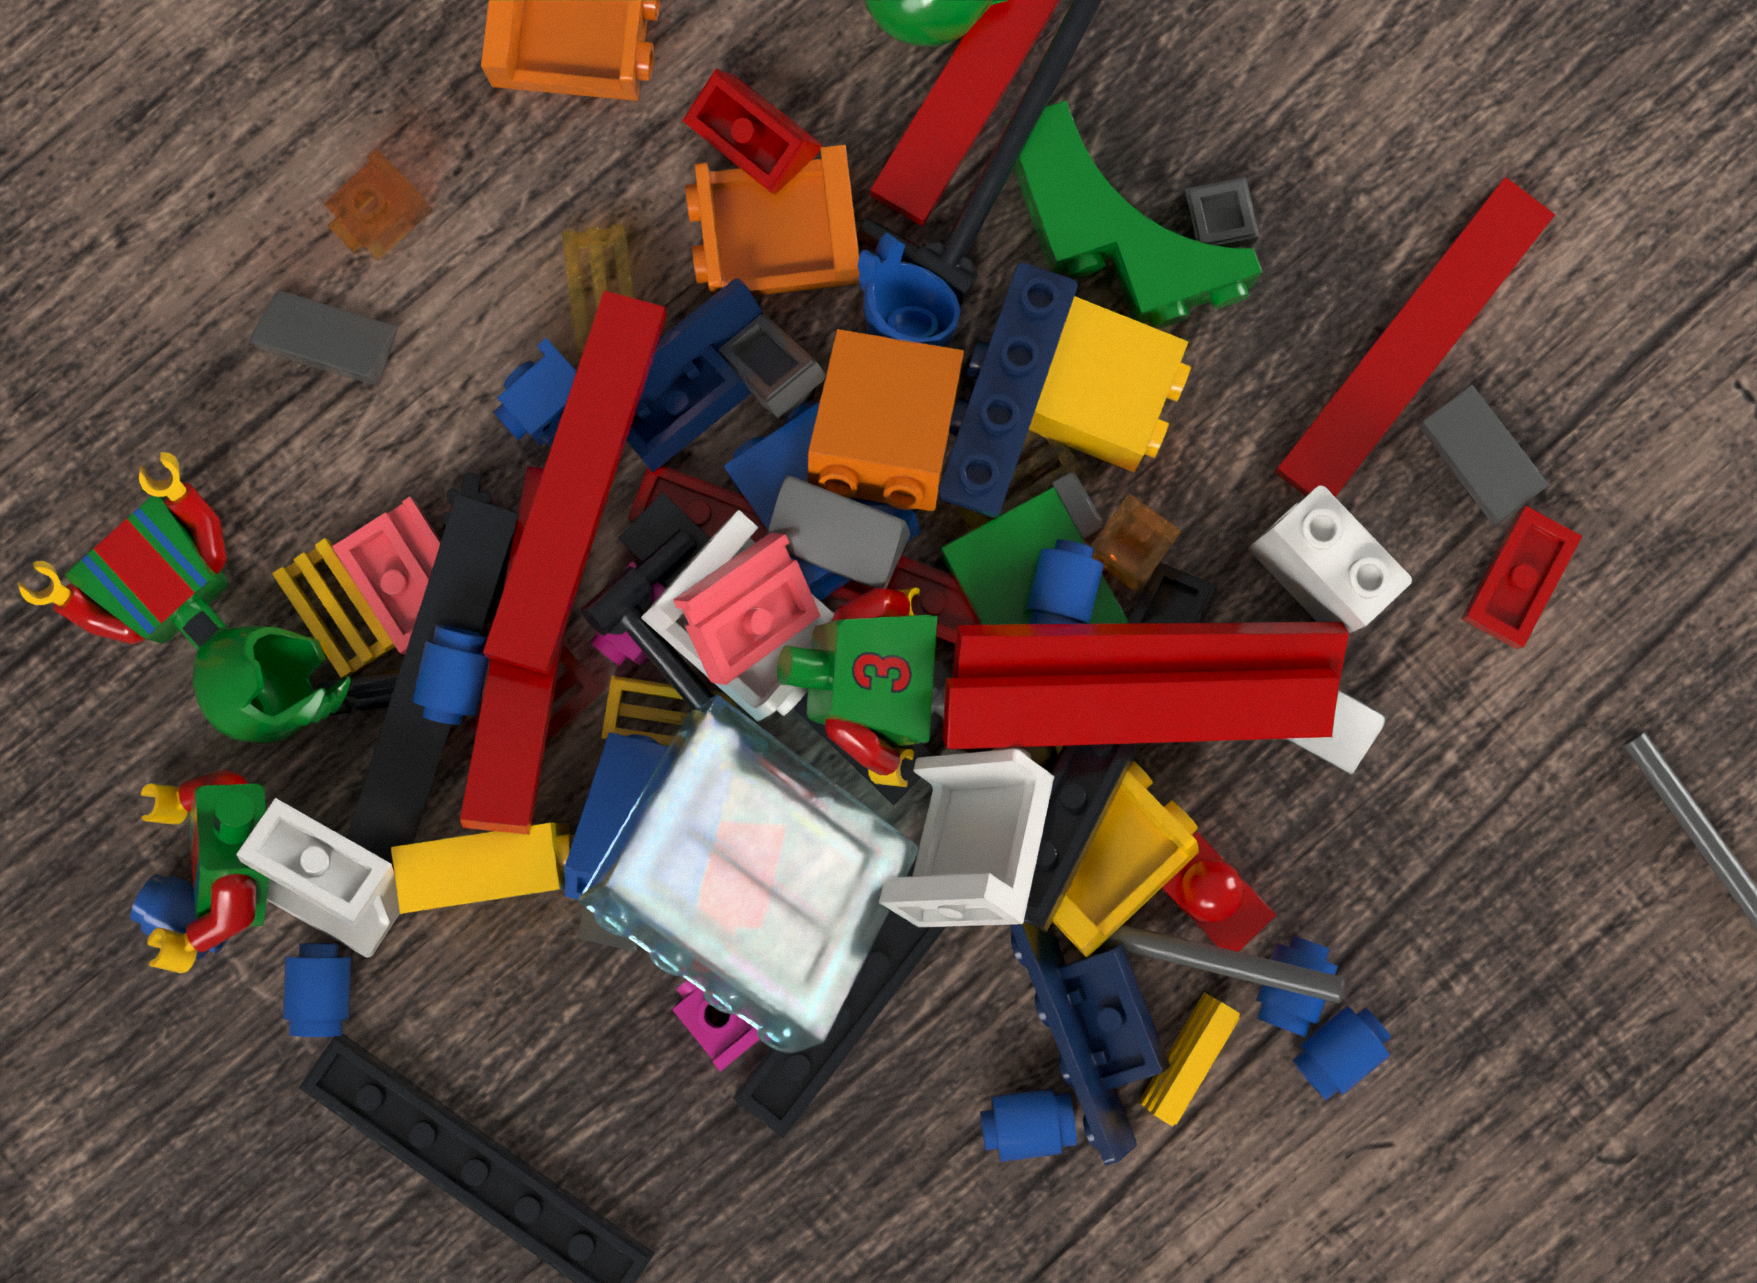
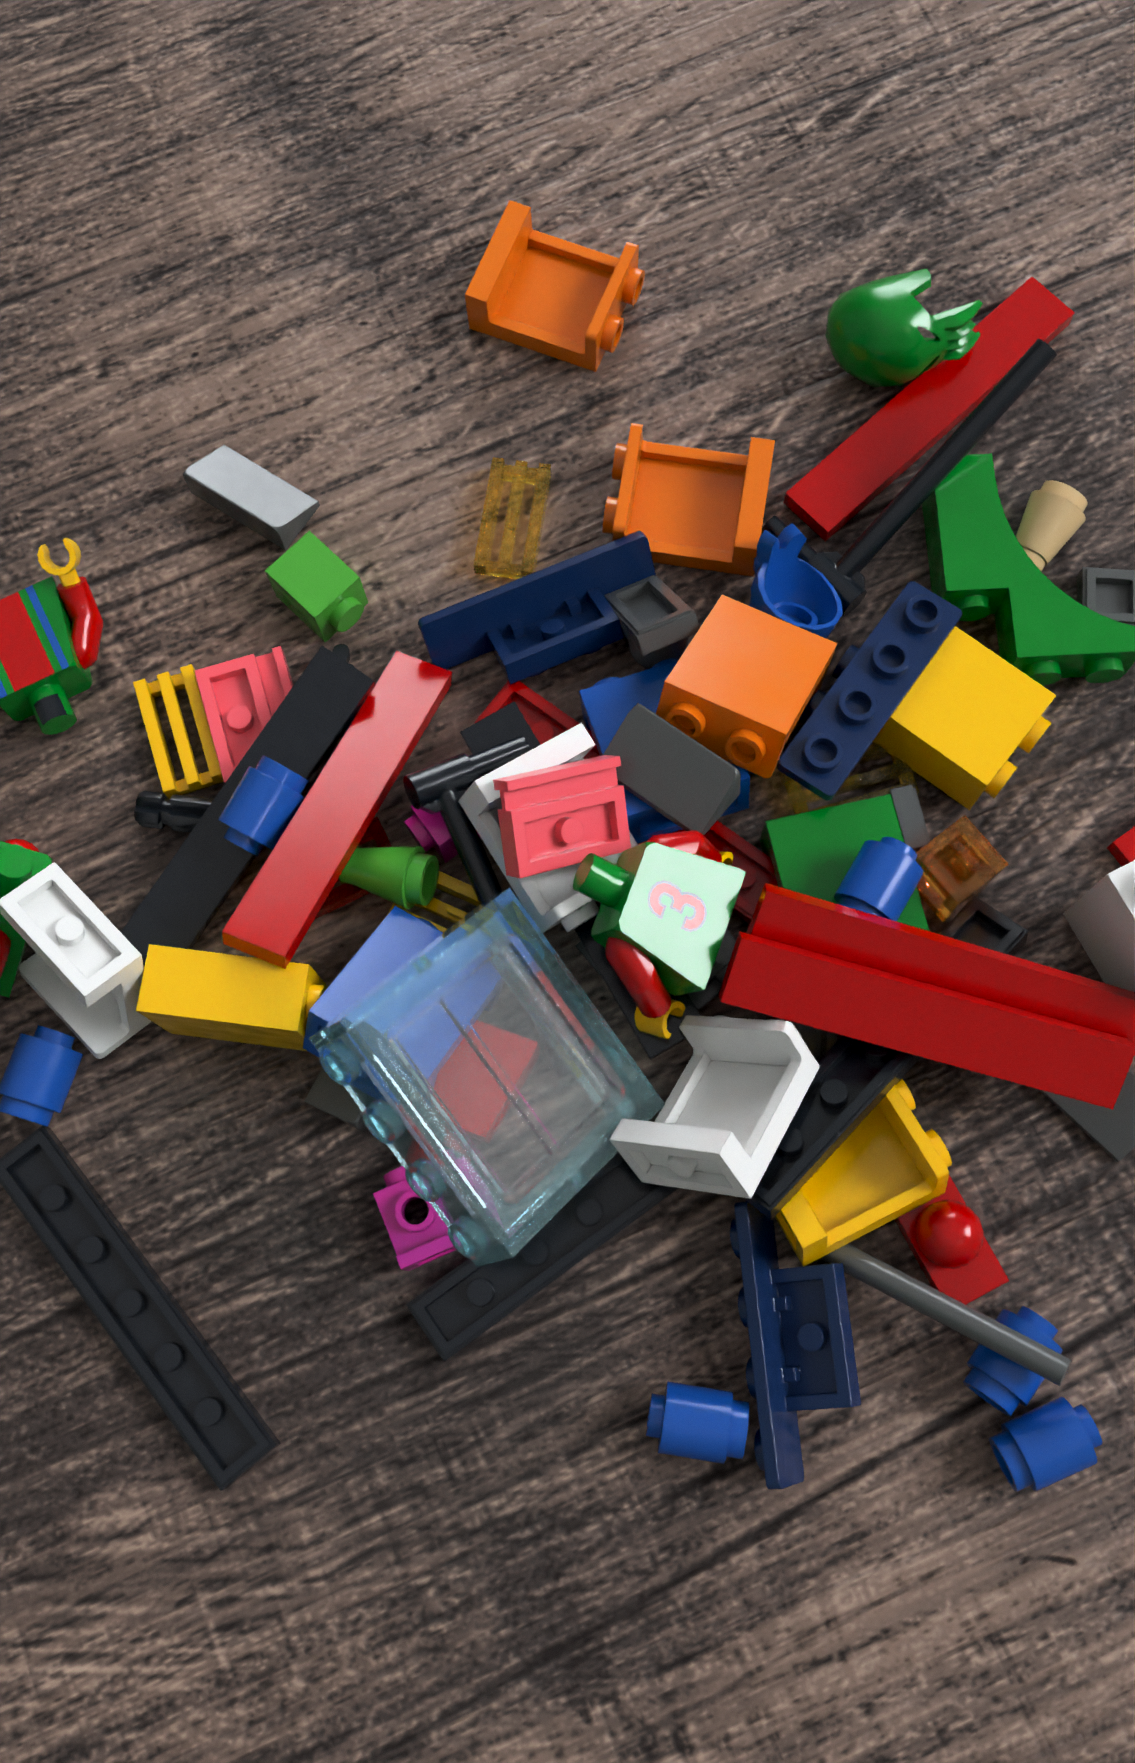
camera: 20 degrees right, 10 degrees down
(258, 683) = (87, 772): green helmet -> none
(397, 211) = (334, 395): clear orange brick -> none
(428, 423) = (318, 587): none -> bright green brick
(536, 394) = (427, 586): blue brick -> none
(575, 483) = (432, 667): red tile -> none
(599, 699) = (394, 873): none -> bright green cone
(751, 131) = (690, 415): red slope -> none
(1140, 154) = (1050, 521): none -> tan cone
(1190, 1059) = (884, 1403): yellow tile -> none

